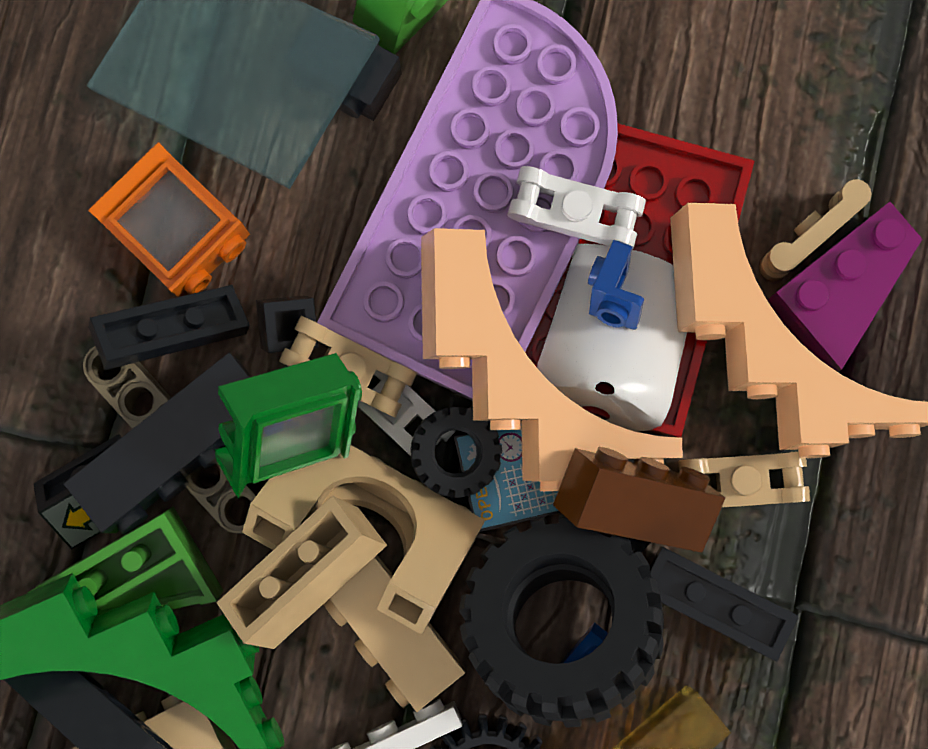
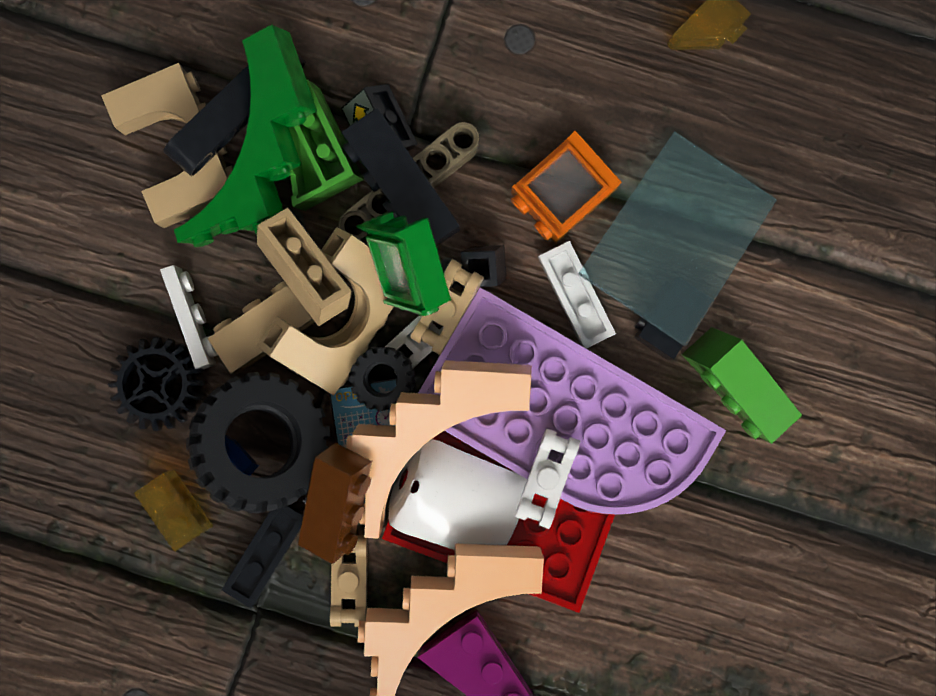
camera: 90 degrees right, 5 degrees up
(168, 326) = (487, 183): black plate -> none
(319, 197) = (576, 295): none -> white plate
(608, 300) = (493, 495): blue bracket -> none
(815, 230) = (524, 653): tan plate -> none

